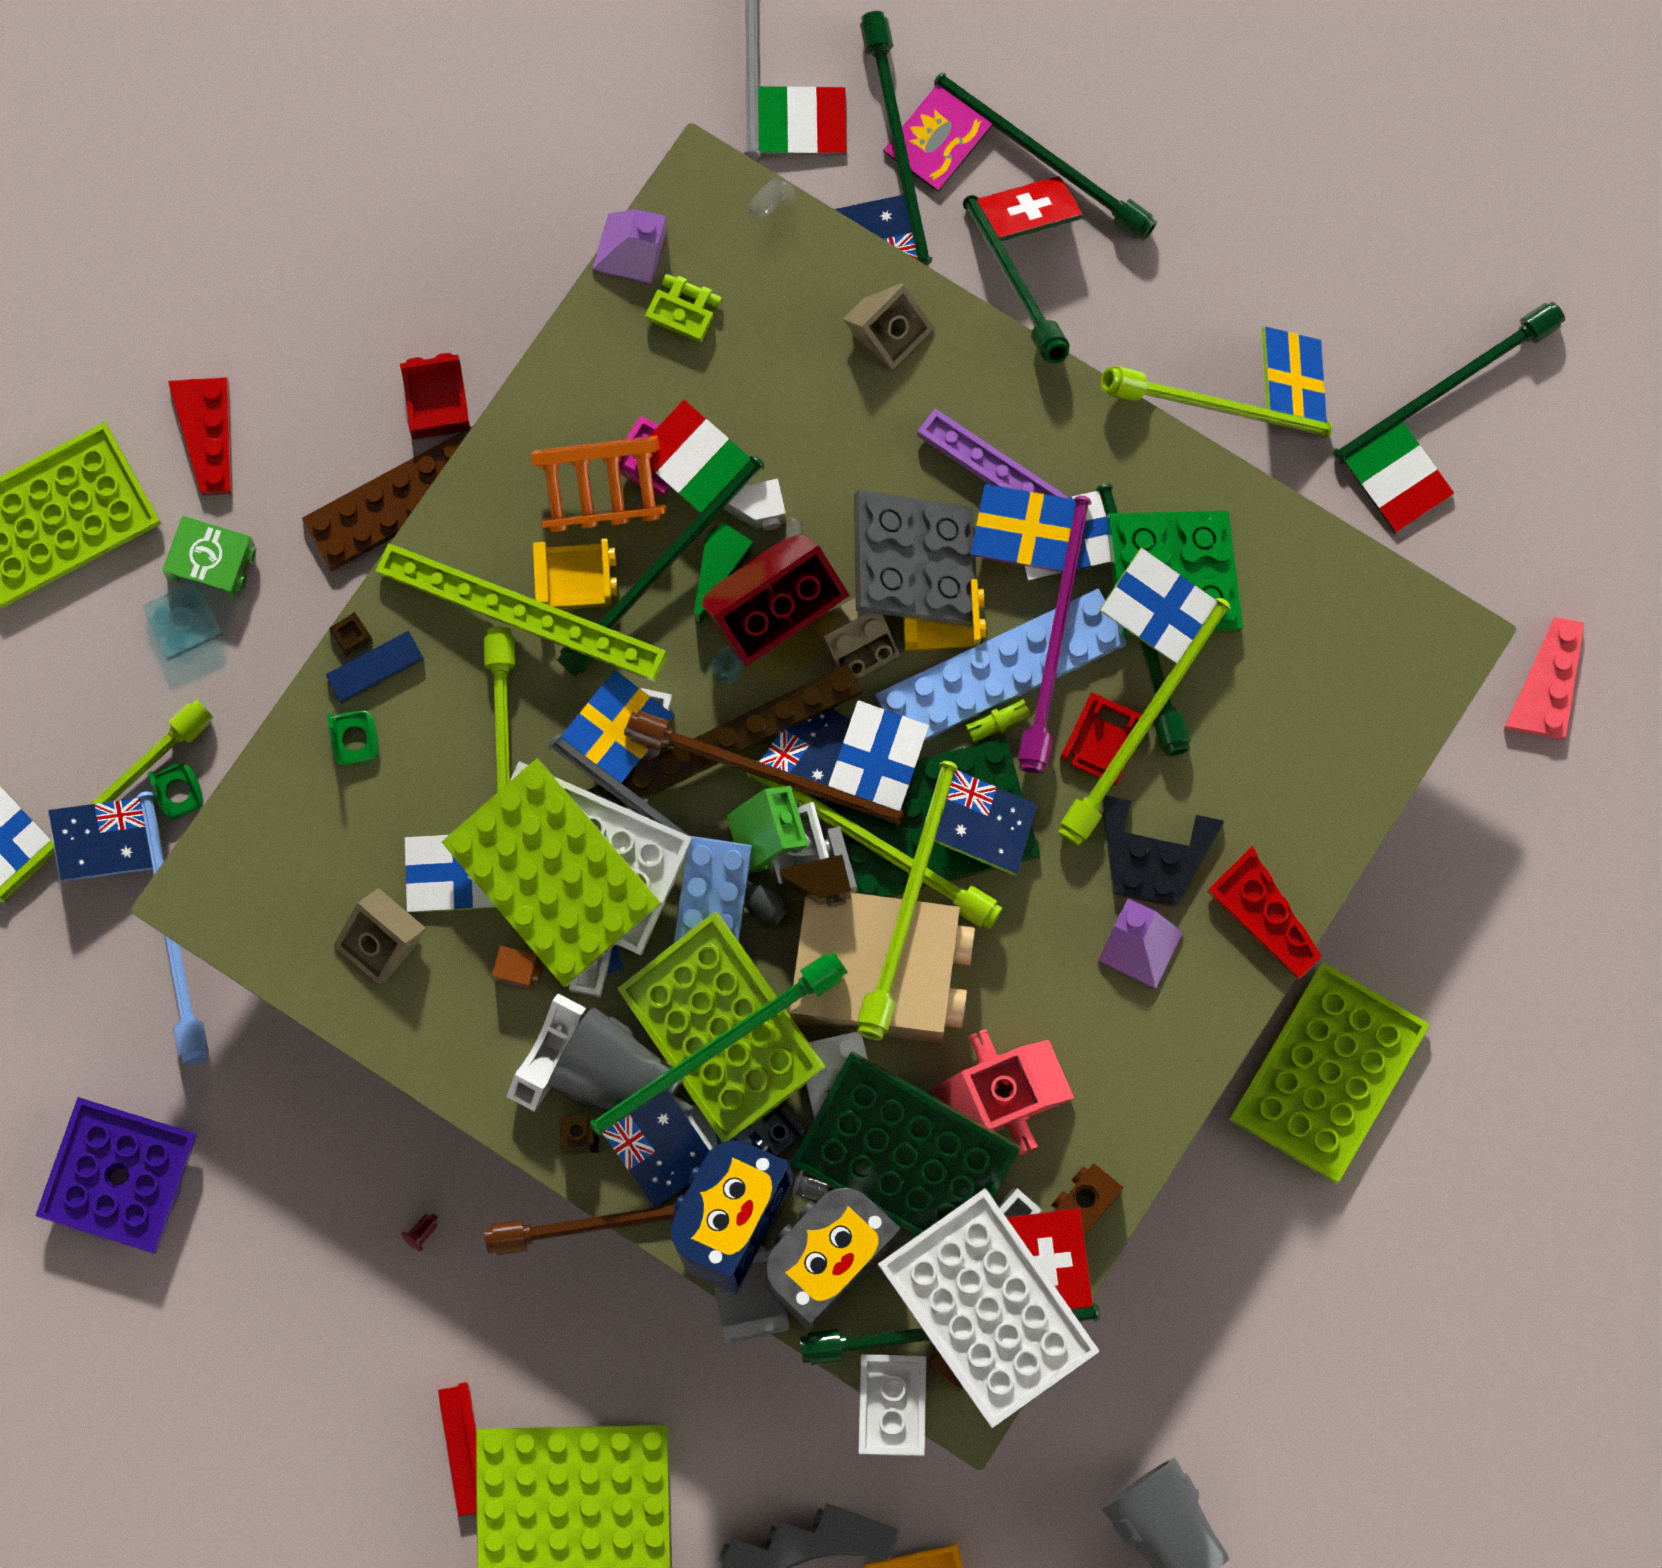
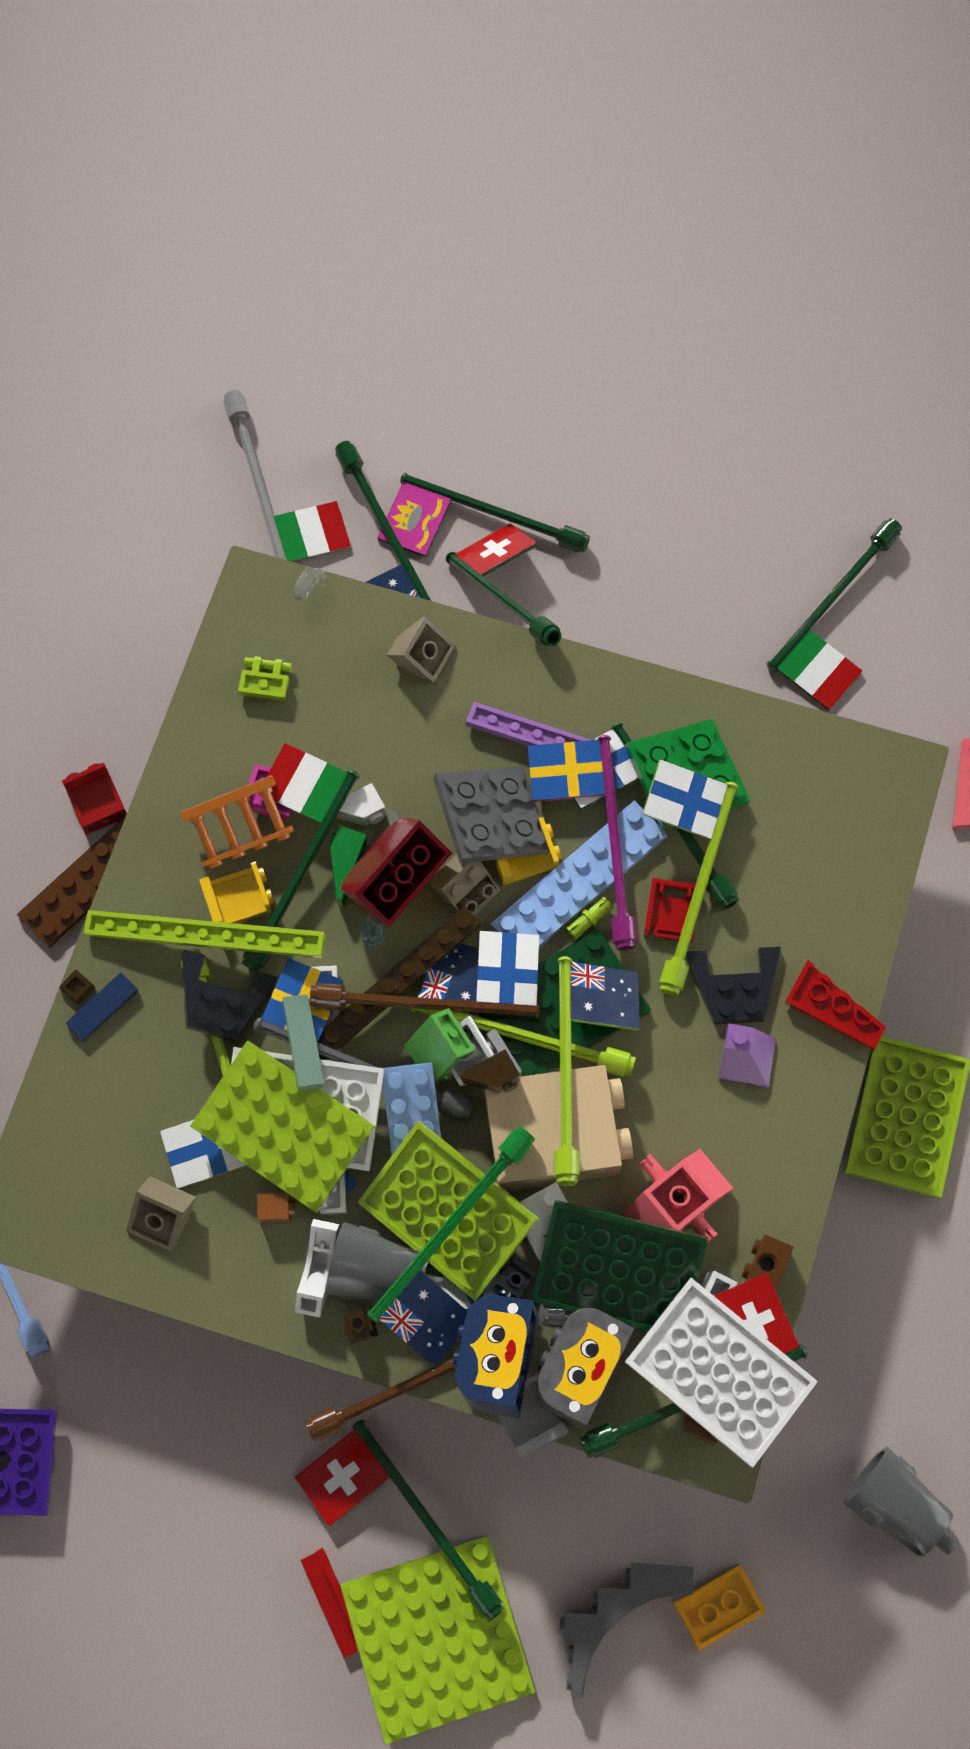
camera: 15 degrees left, 5 degrees down
(342, 722) = (86, 1058): green piece -> none
(420, 1232) = (253, 1437): dark red piece -> none
(511, 707) = (216, 1008): none -> black wing
(532, 1305) = (355, 1471): none -> flag
(602, 778) = (302, 1042): none -> sand green tile
(631, 245) = (213, 643): medium lavender slope -> none
(892, 1405) = (666, 1471): white plate -> none
(1290, 378) = (720, 618): flag -> none

